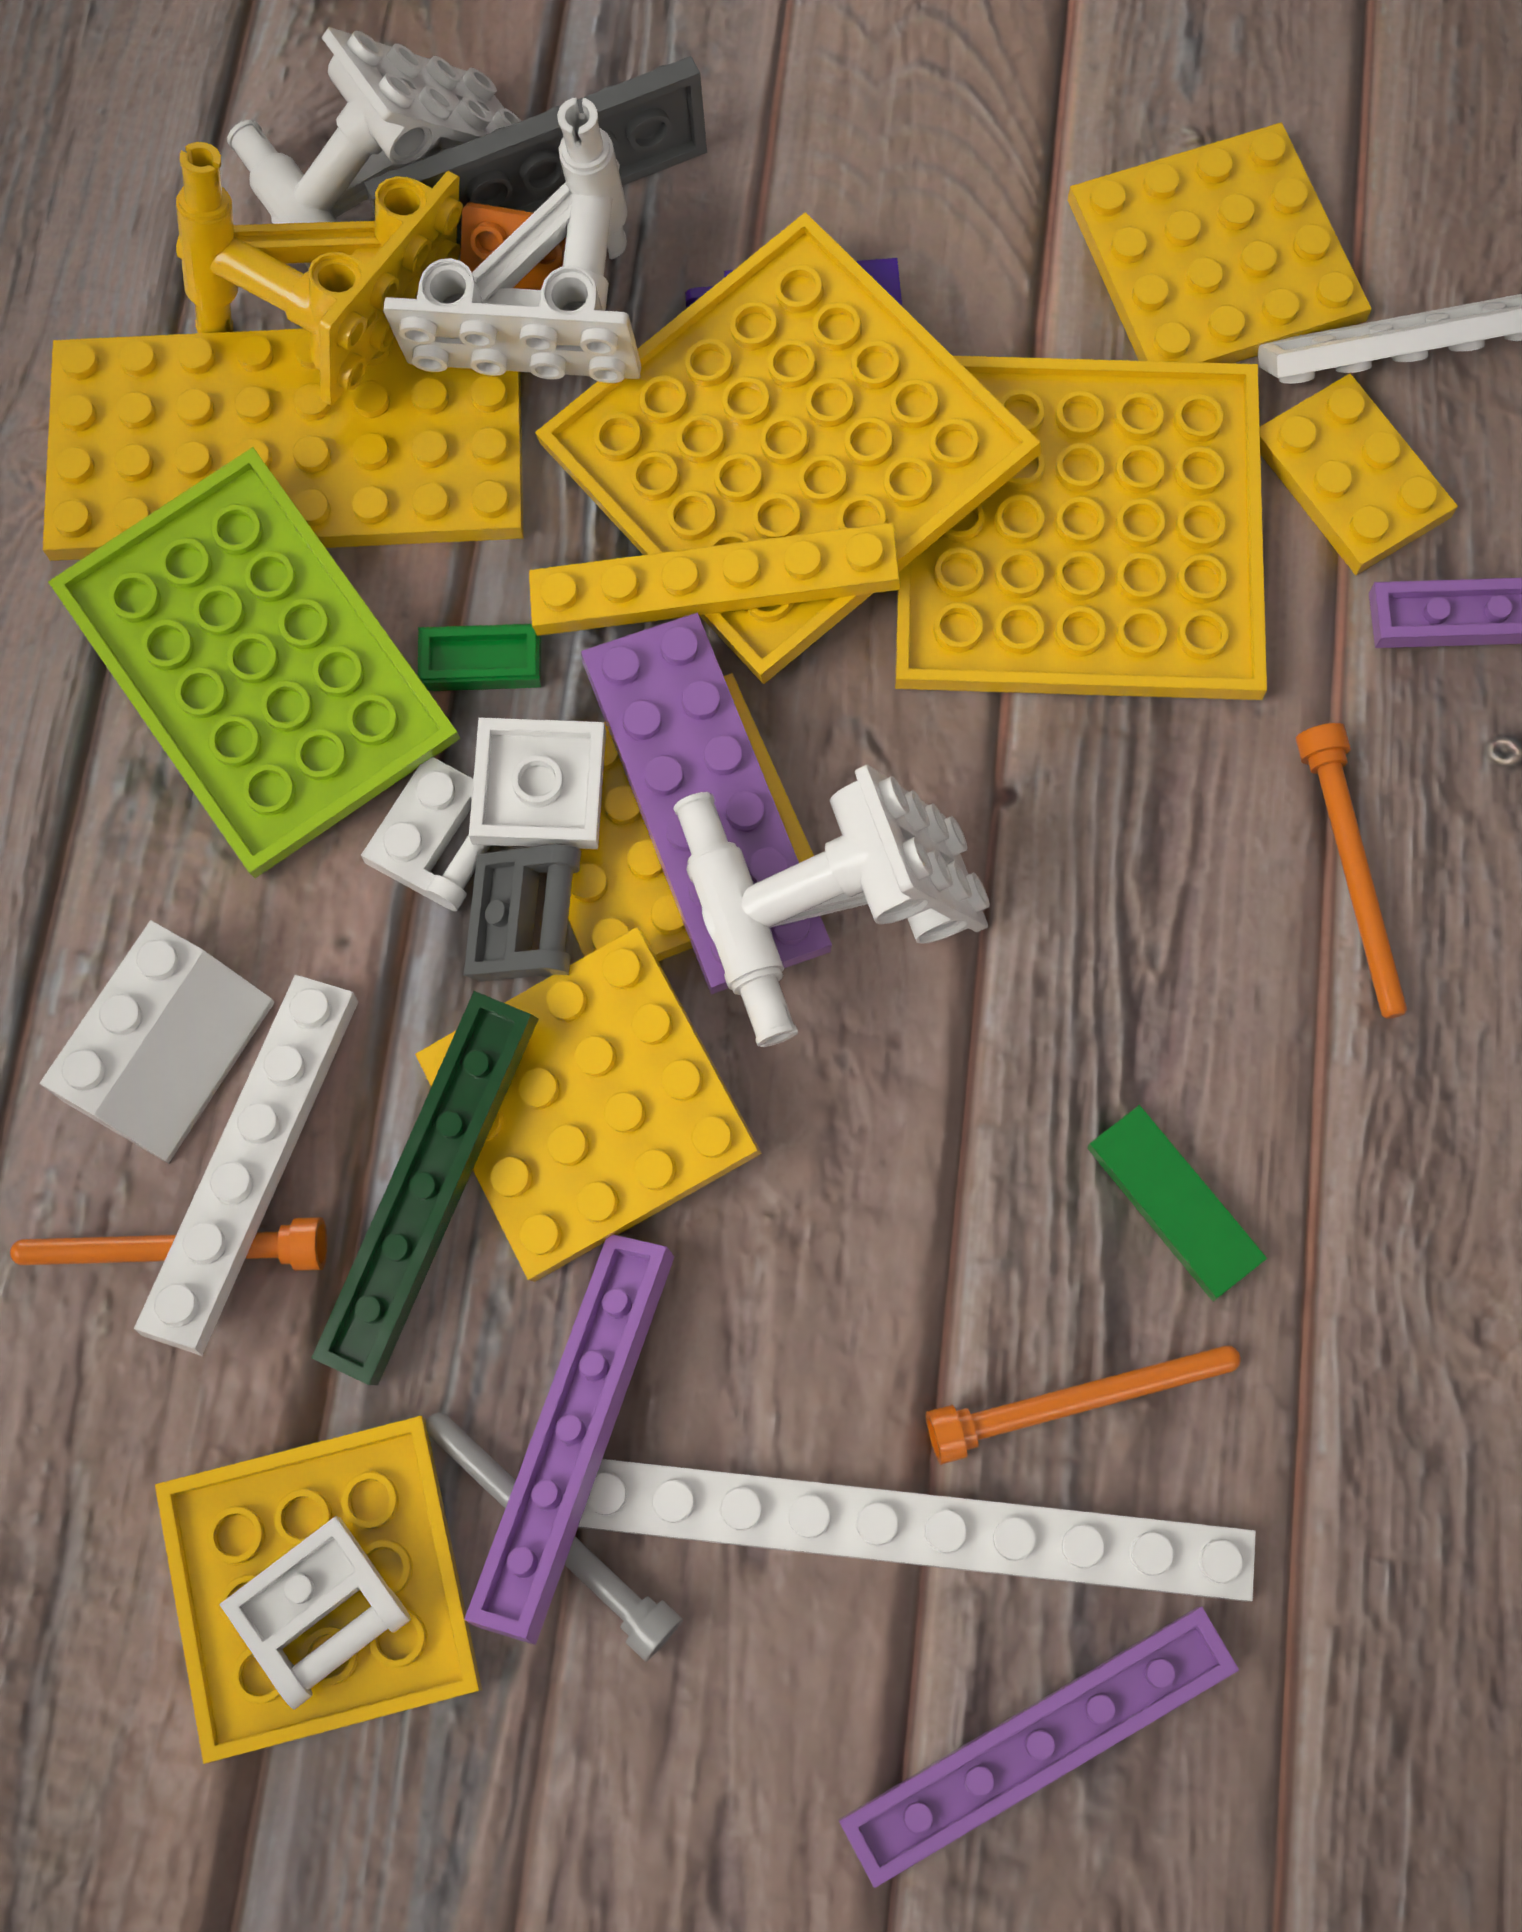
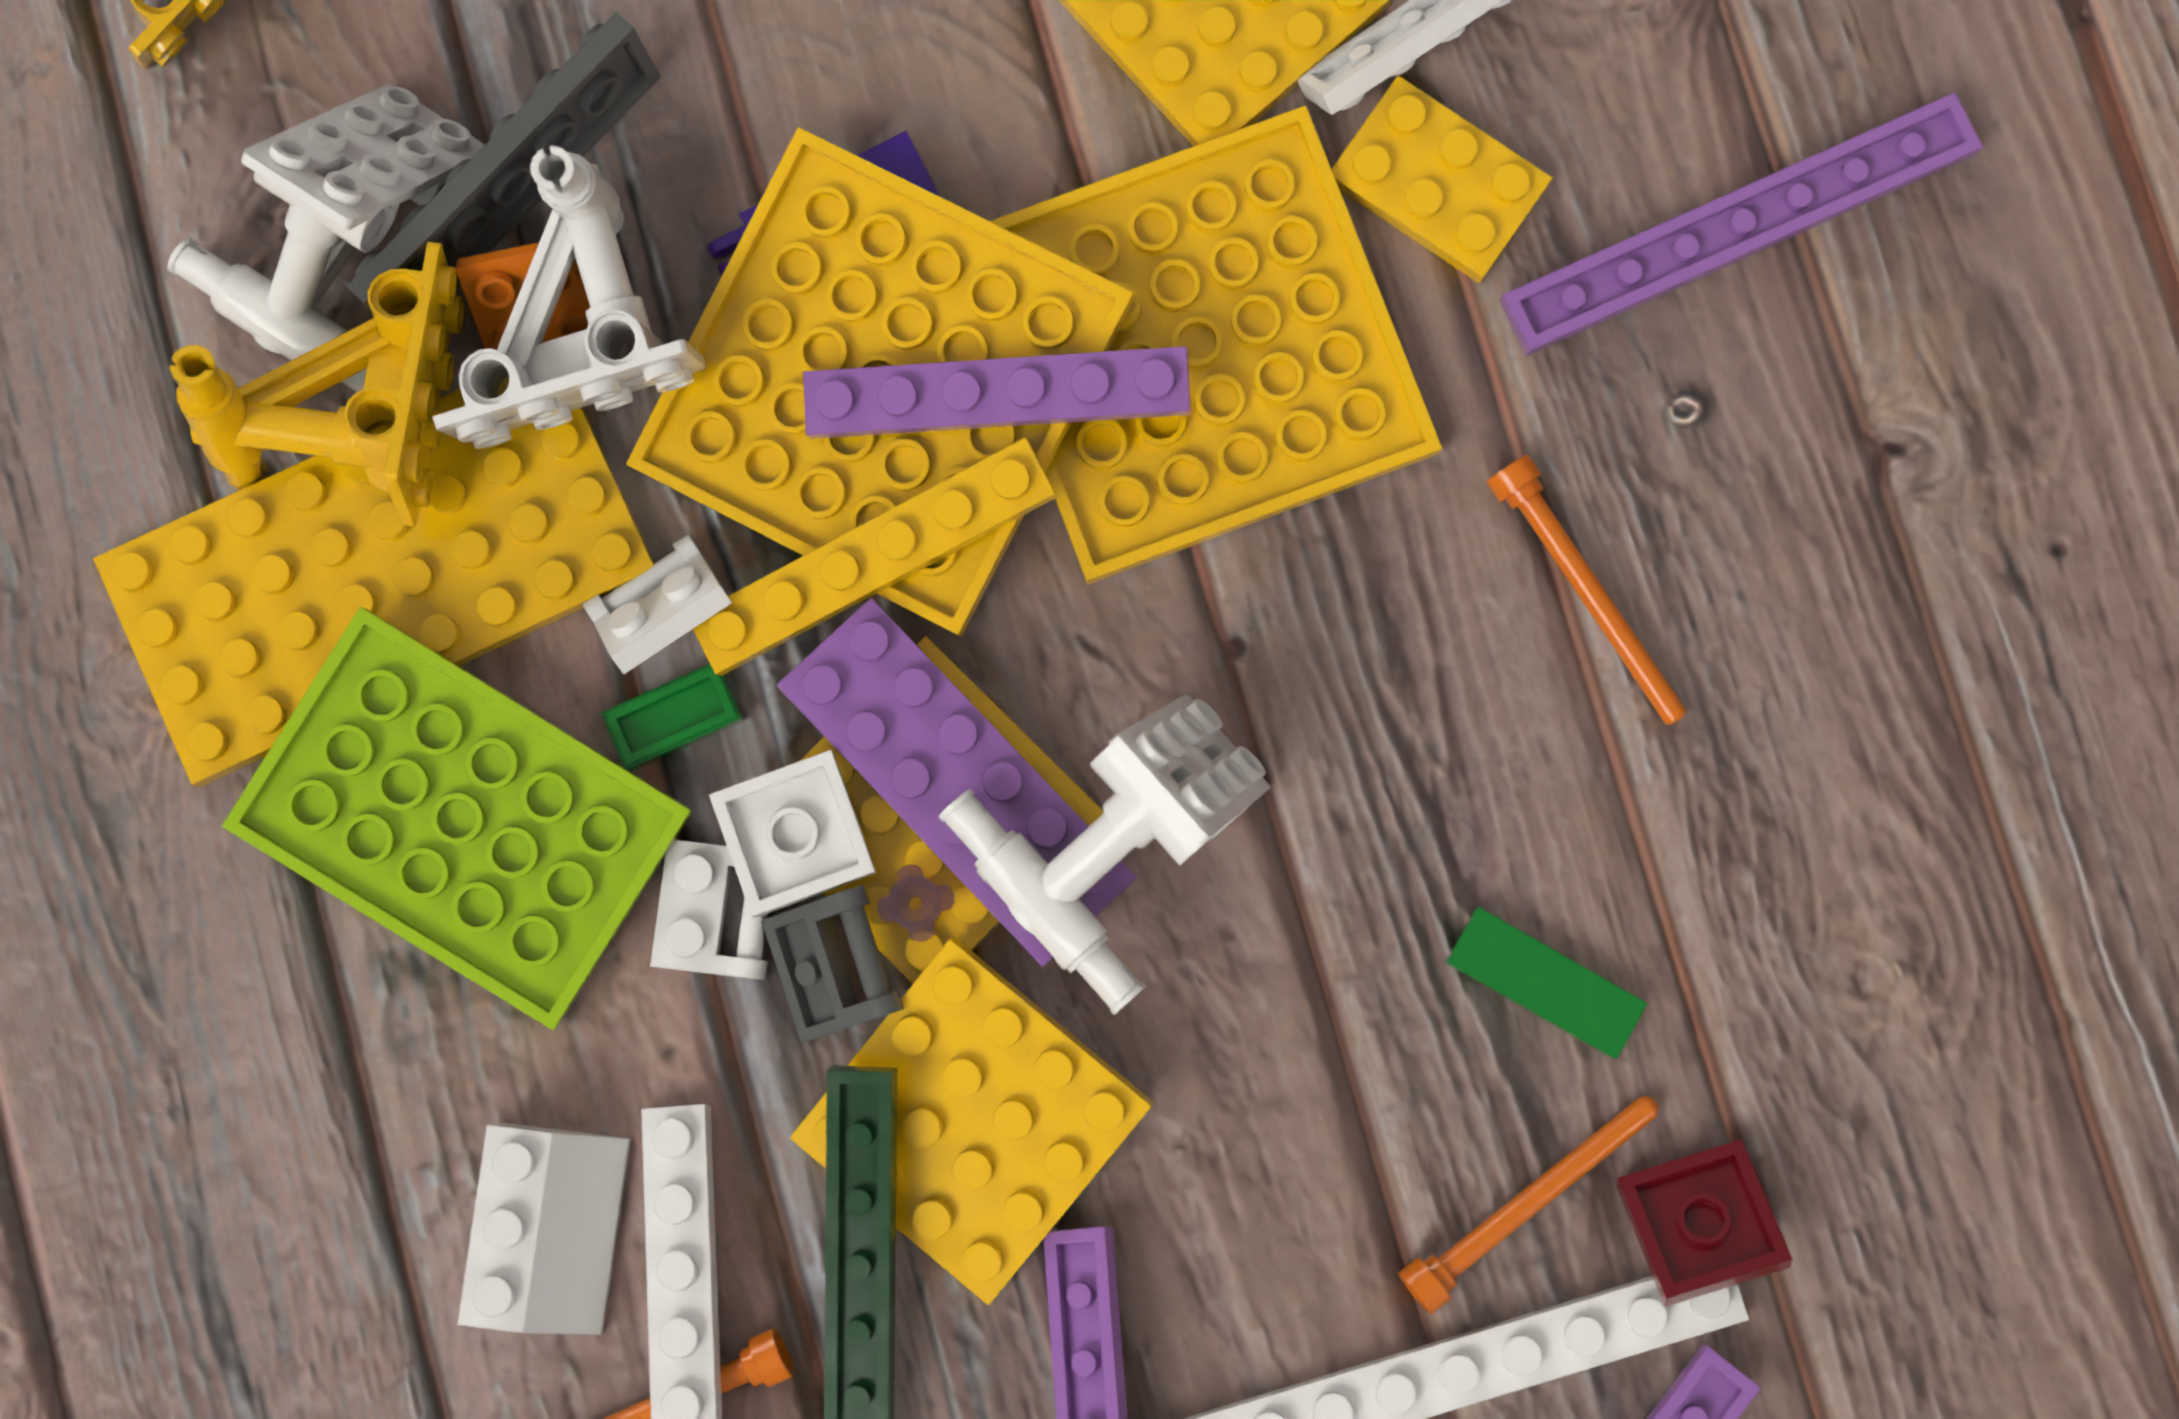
camera: 20 degrees left, 10 degrees up
(507, 552) = (657, 606): none -> white plate
(621, 869) = (897, 905): none -> plate
(886, 481) = (997, 392): none -> medium lavender plate
(1243, 1484) = (1704, 1222): none -> dark red plate

